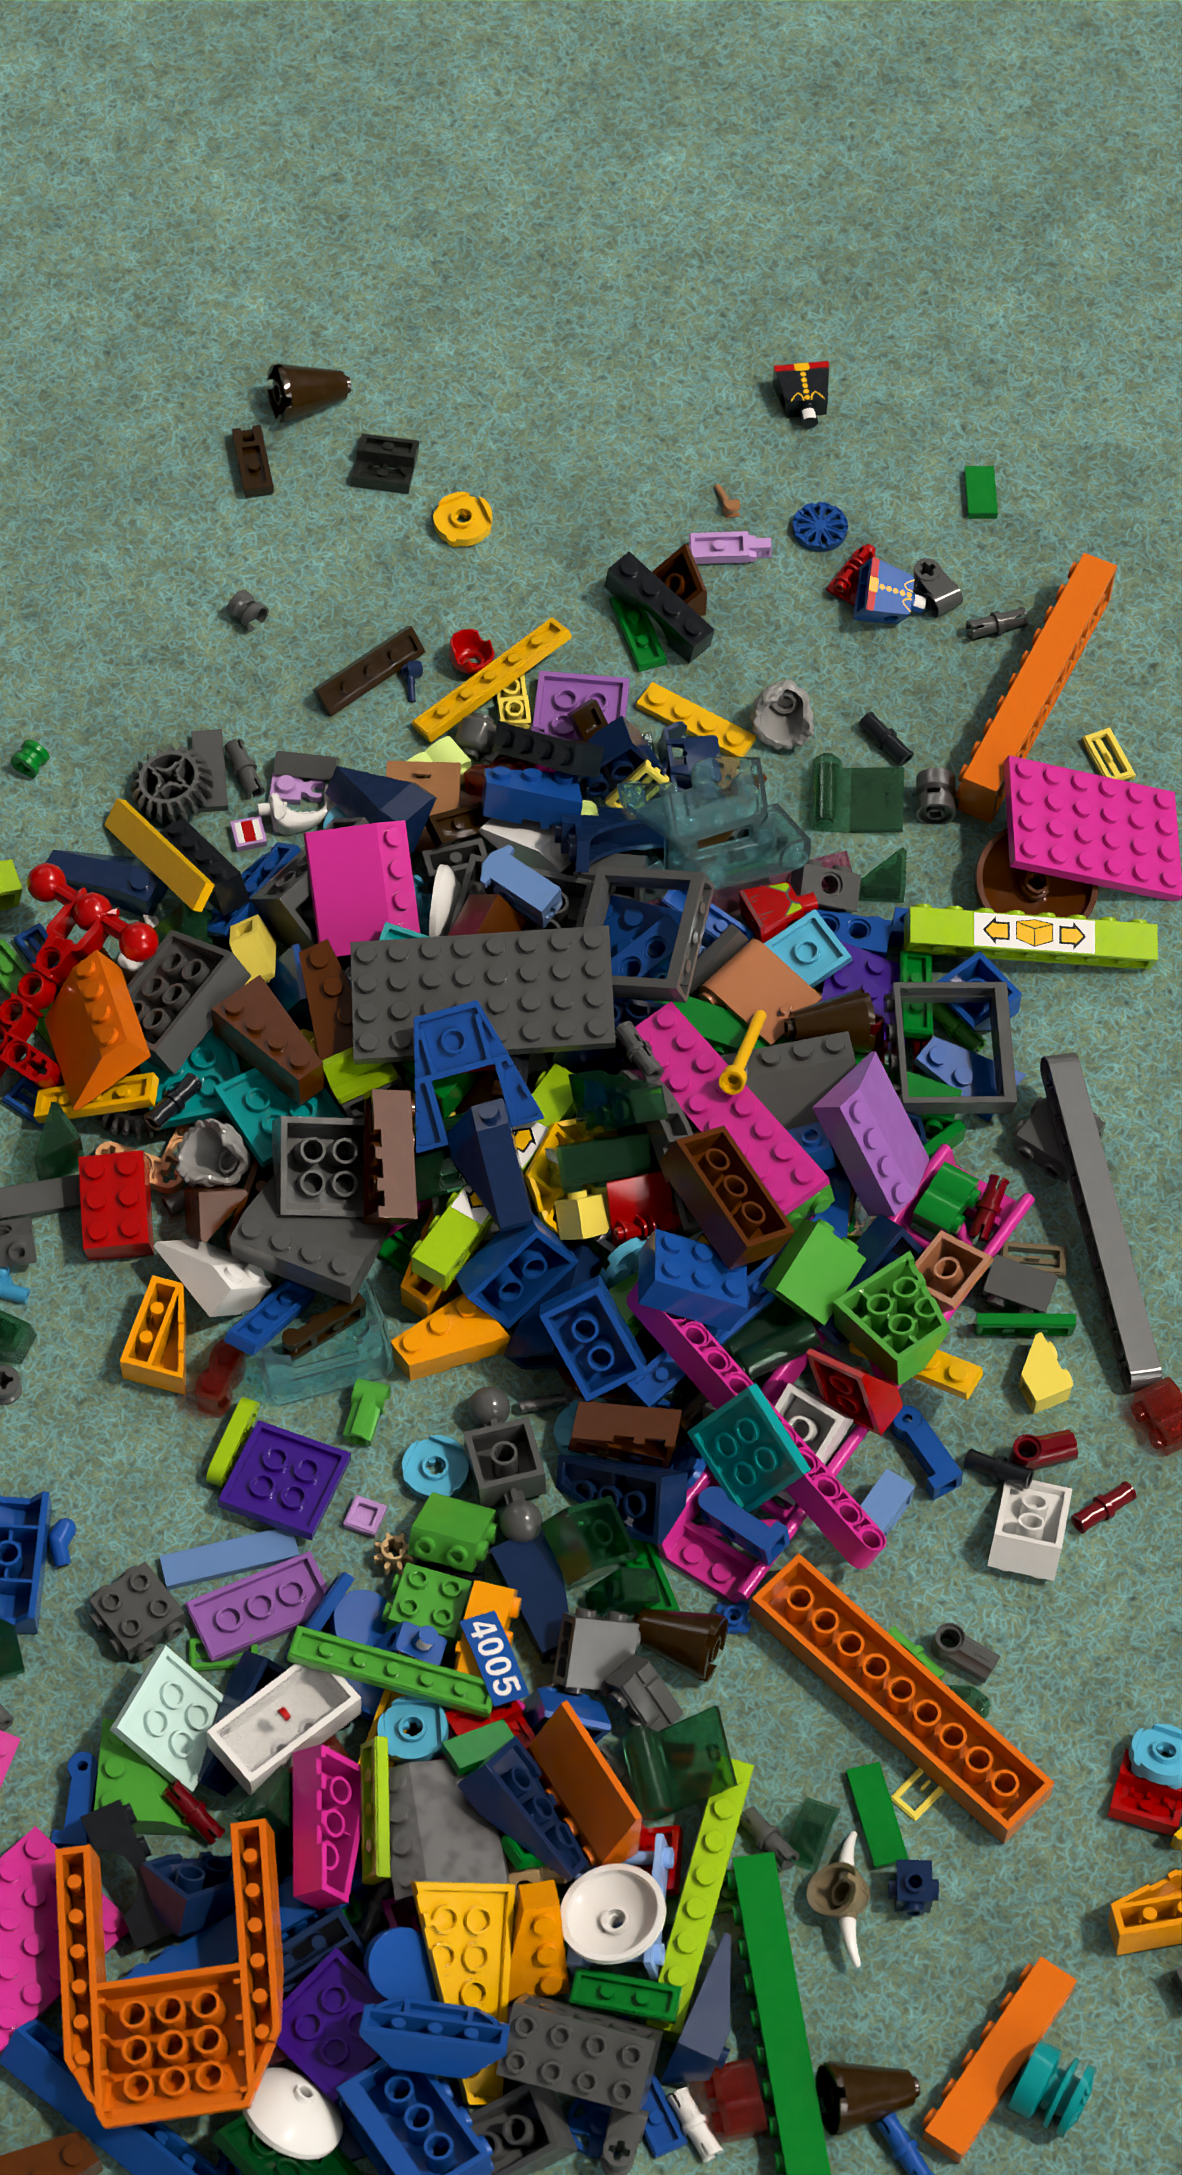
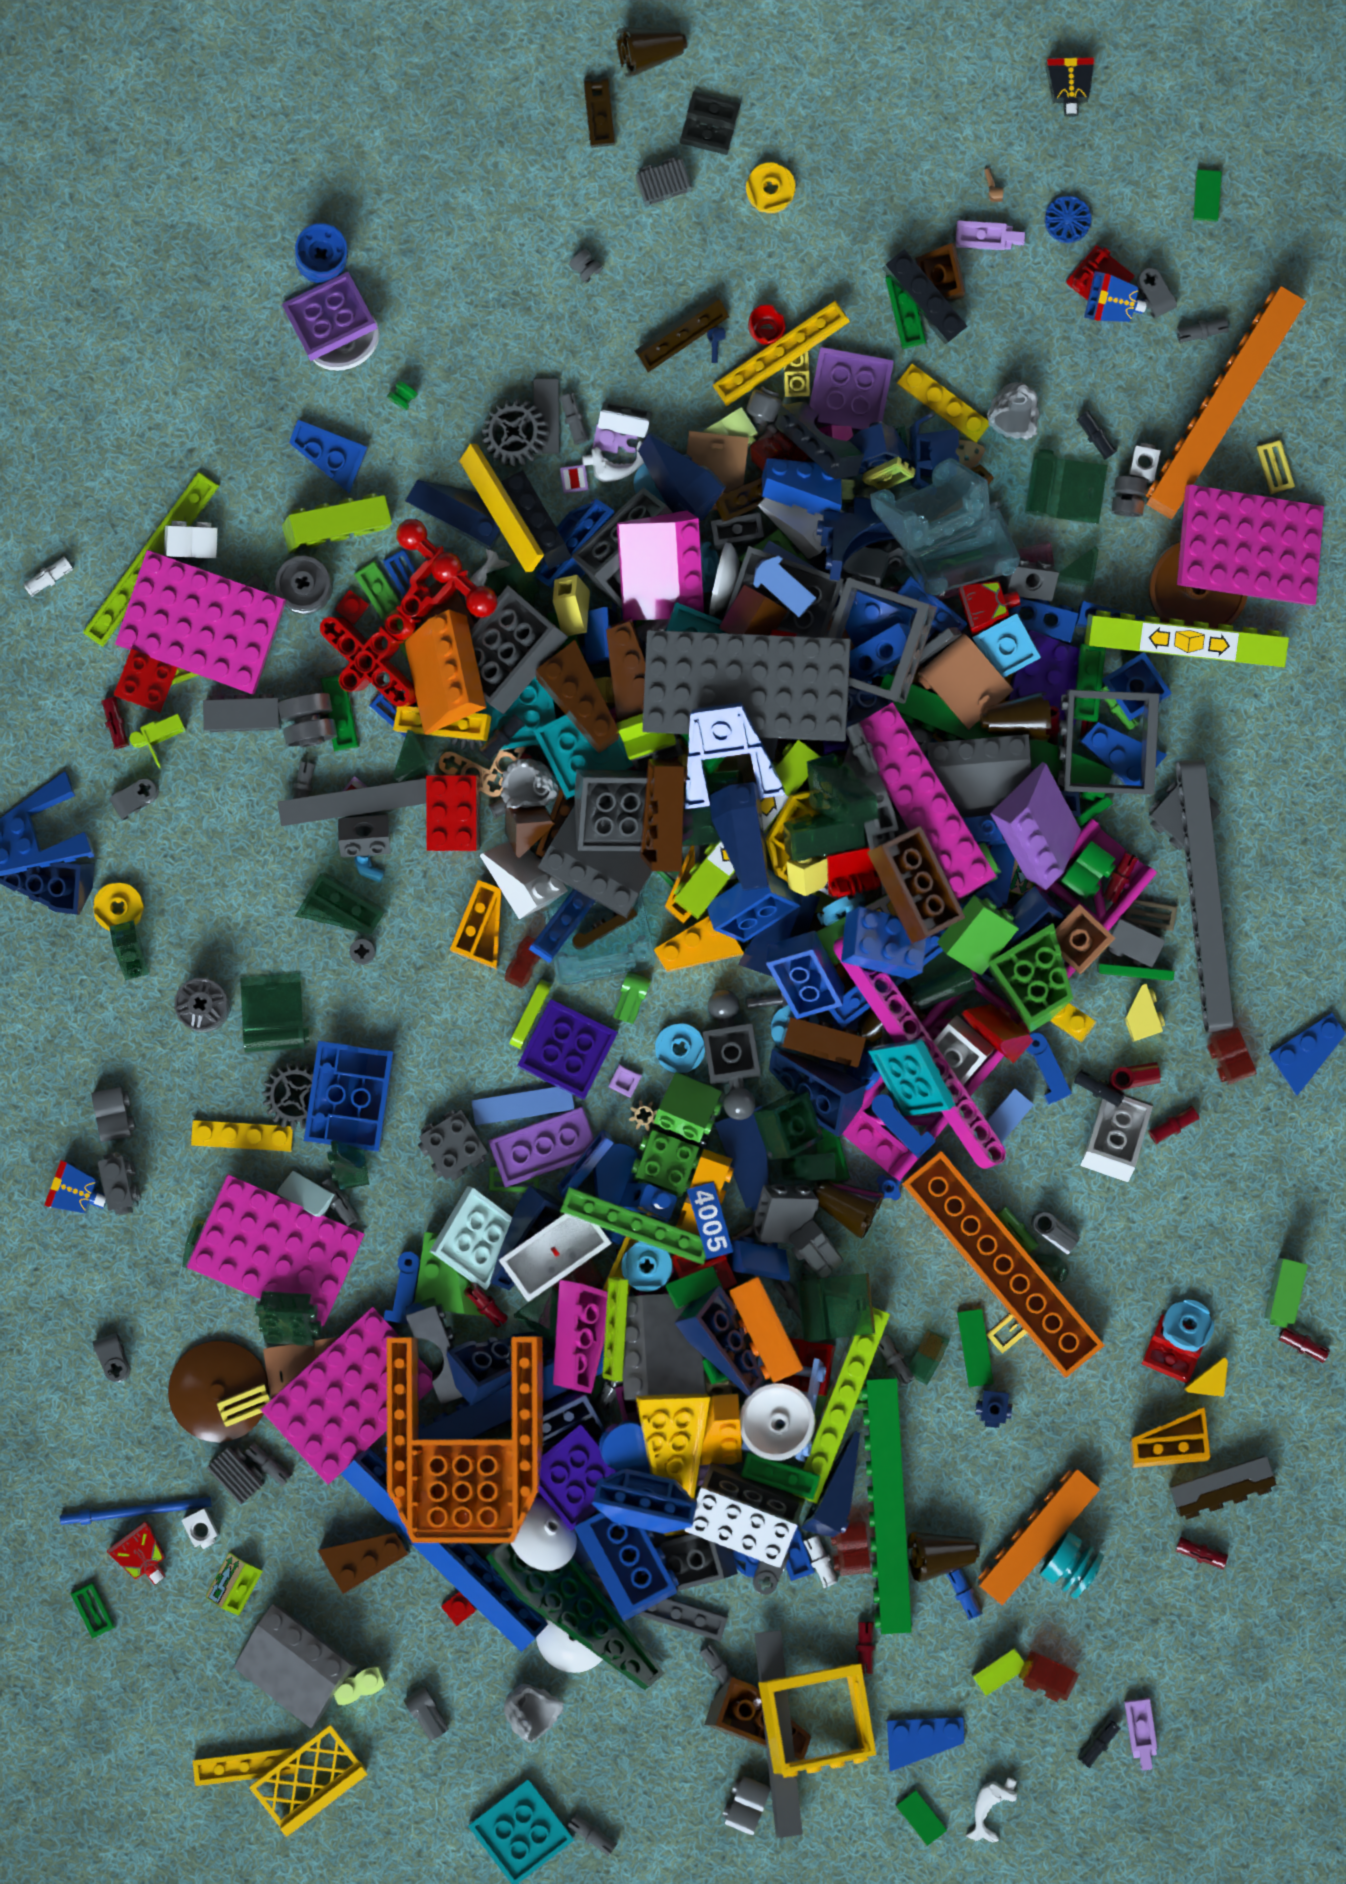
camera: 10 degrees right, 25 degrees up
(59, 1540) = (398, 1082): blue arm -> none
(334, 521) = (663, 181): none -> dark grey brick
(587, 719) = (855, 404): dark brown plate -> none
(734, 1076) = (933, 783): yellow piece -> none
(841, 1894) = (941, 1407): dark tan helmet -> none
(950, 750) = (1150, 452): none -> white brick

